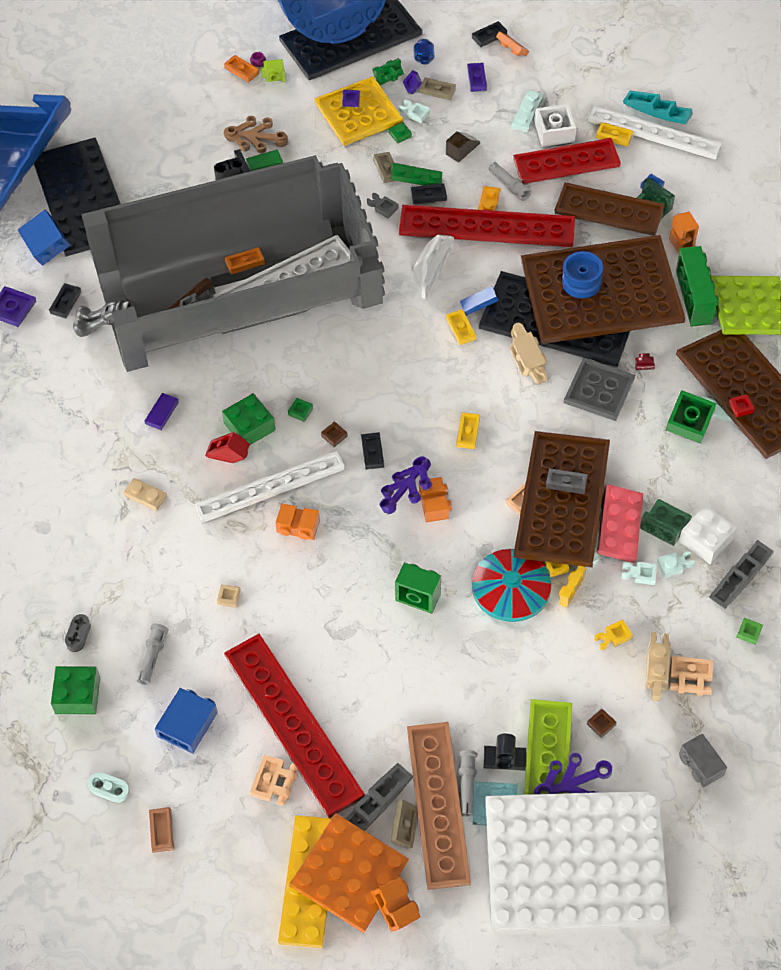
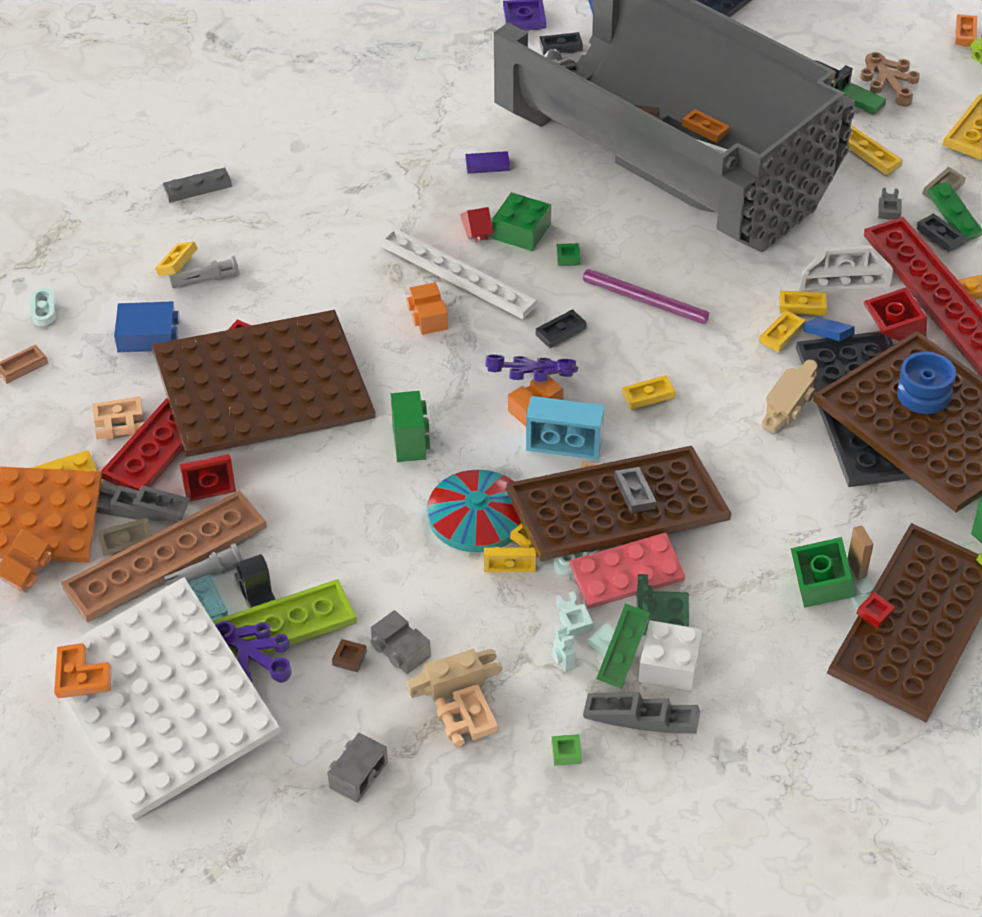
camera: 60 degrees right, 10 degrees down
(38, 617) = (197, 184): none -> dark grey plate
(74, 631) = (196, 216): dark grey beam -> none
(75, 690) = (130, 238): green brick -> none
(122, 666) = (176, 258): none -> yellow plate
(145, 494) = (382, 193): tan plate -> none
(228, 596) = (308, 299): tan tile -> none
(304, 665) = (262, 382): none -> reddish brown plate
(334, 434) = (558, 291): reddish brown plate -> none
(372, 386) = (646, 296): none -> magenta axle
(379, 740) = (208, 477): none -> red slope
(442, 302) = (803, 302): none -> yellow plate
(479, 493) = (564, 427): none -> medium azure brick
(496, 256) = (897, 314): none -> red slope
(535, 911) = (76, 677): none -> orange plate
(599, 389) = (799, 481): dark grey plate -> none
(608, 686) = (399, 642): none -> flat silver brick
(615, 633) = (473, 624): yellow plate -> none
(644, 362) = (874, 507): dark red plate -> none
(671, 591) = (563, 651): none -> light aqua plate
(692, 555) = (623, 646): none -> green plate
(696, 384) = (860, 552): none -> medium nougat tile

